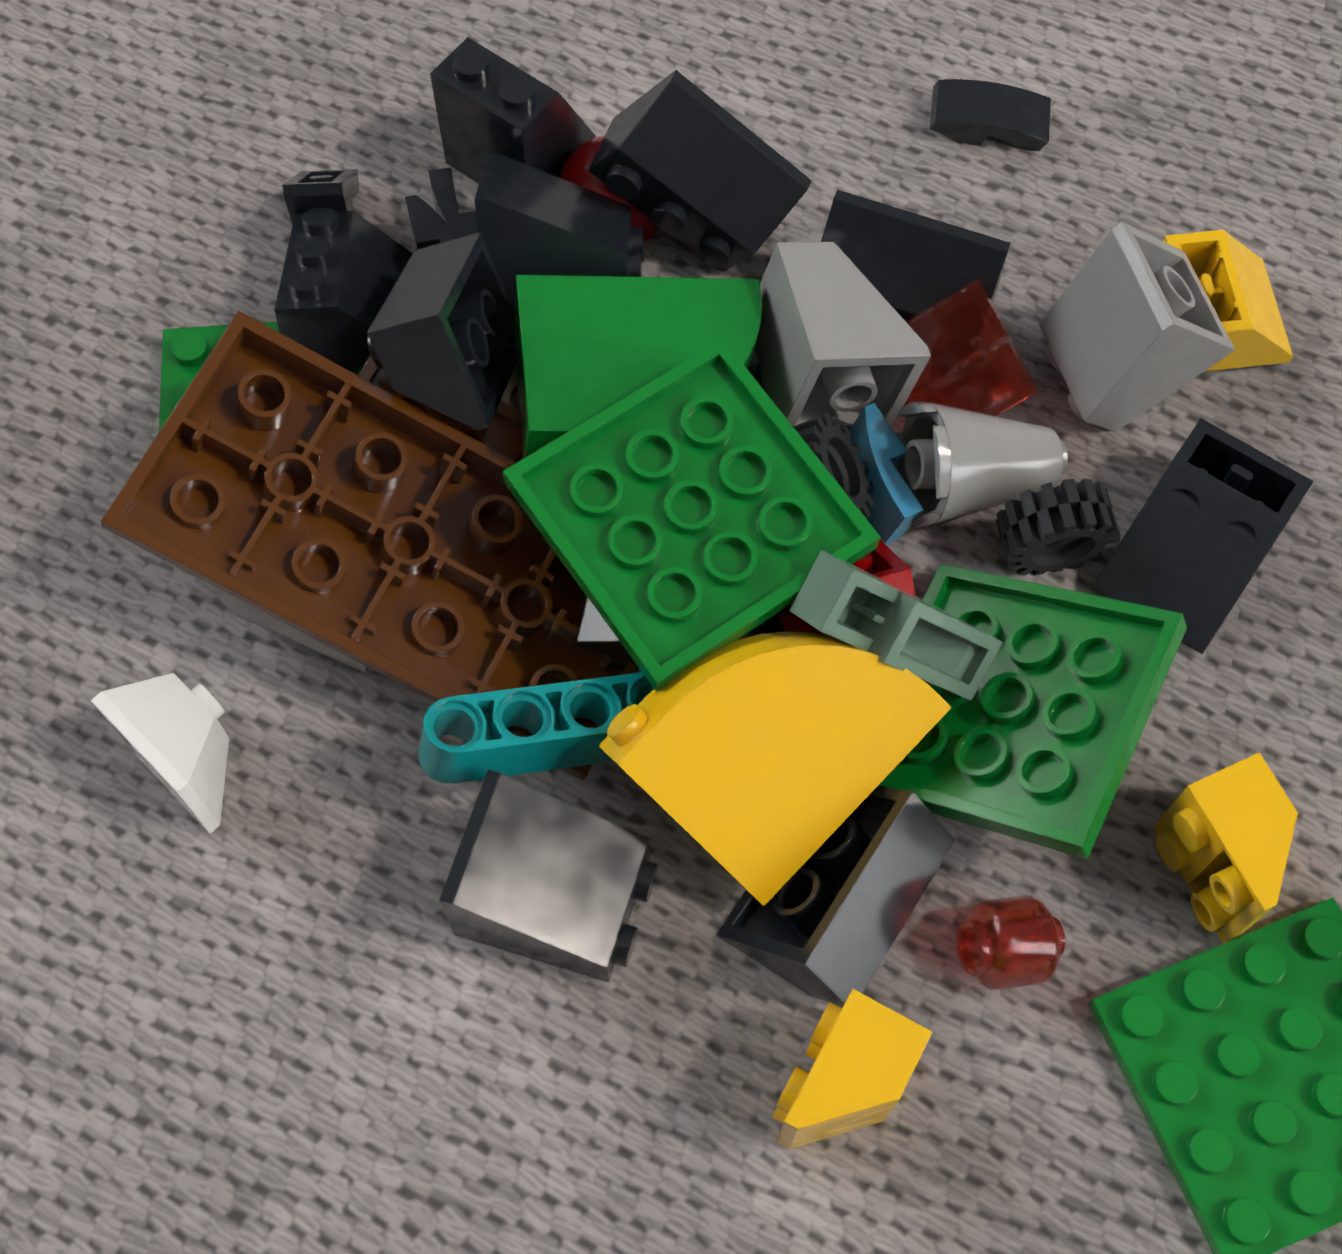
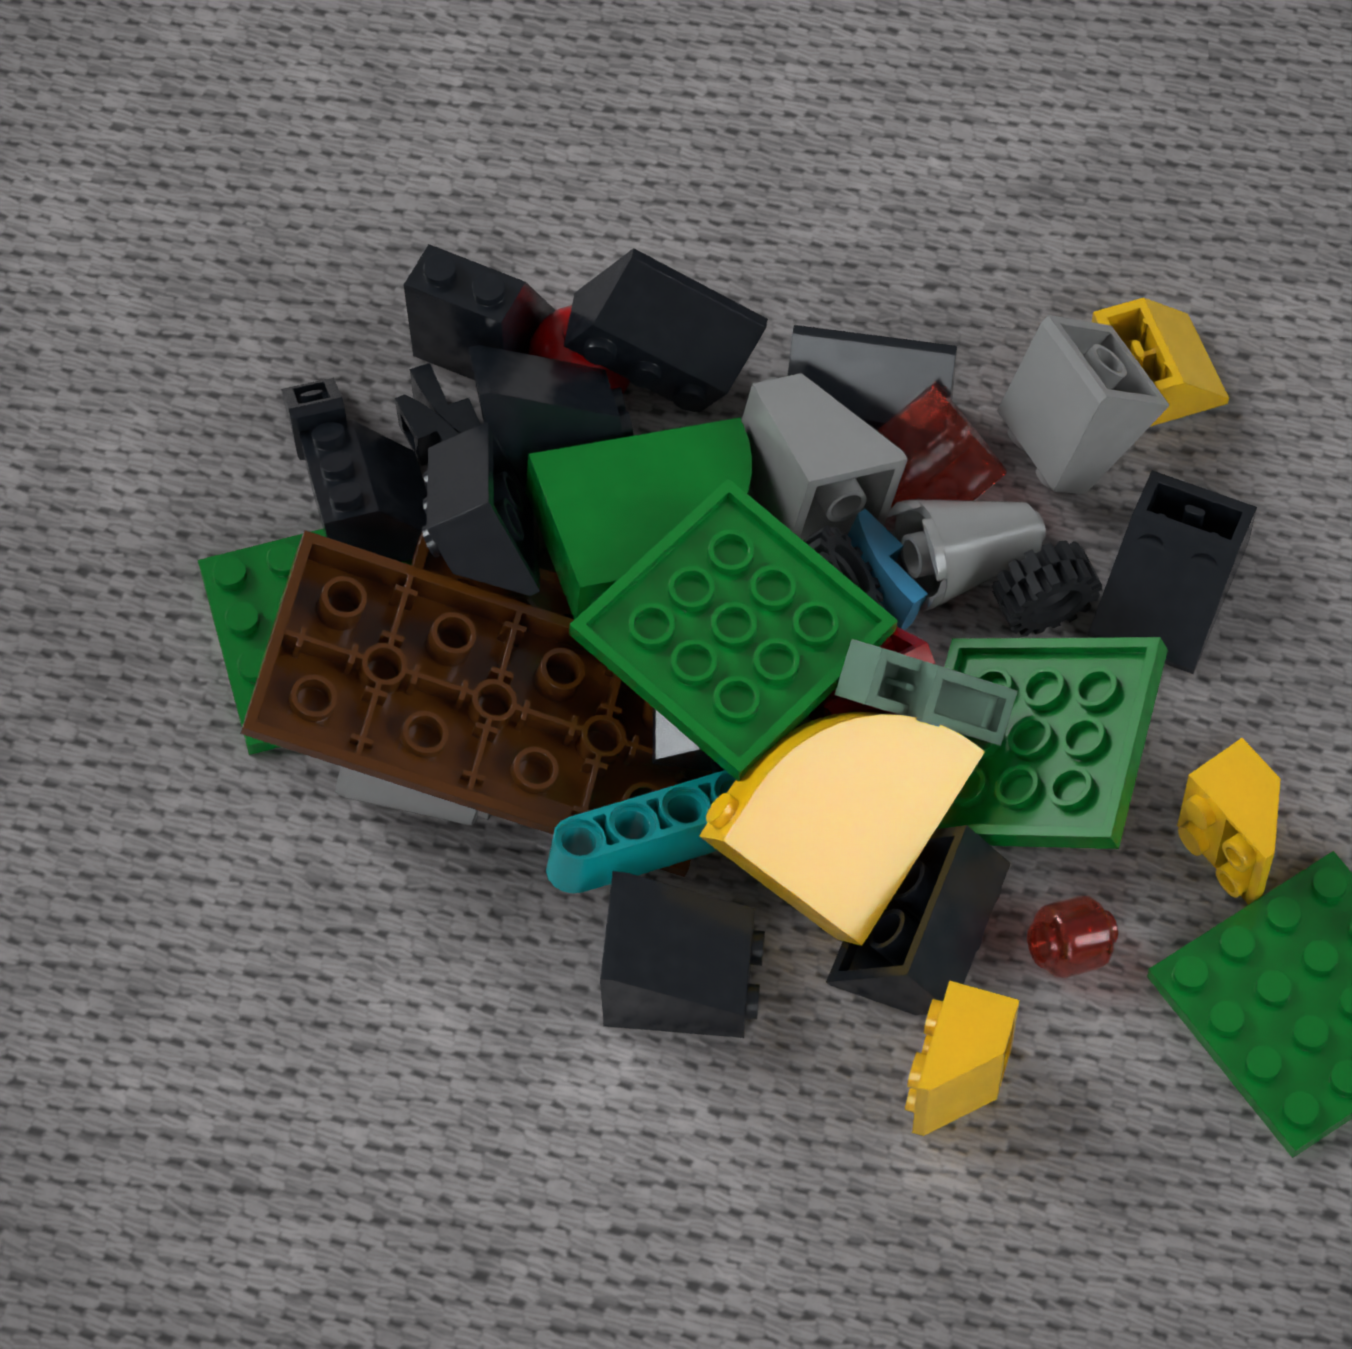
camera: 10 degrees left, 5 degrees down
(175, 738) = (323, 912): white slope -> none
(981, 109) = (907, 216): black slope -> none

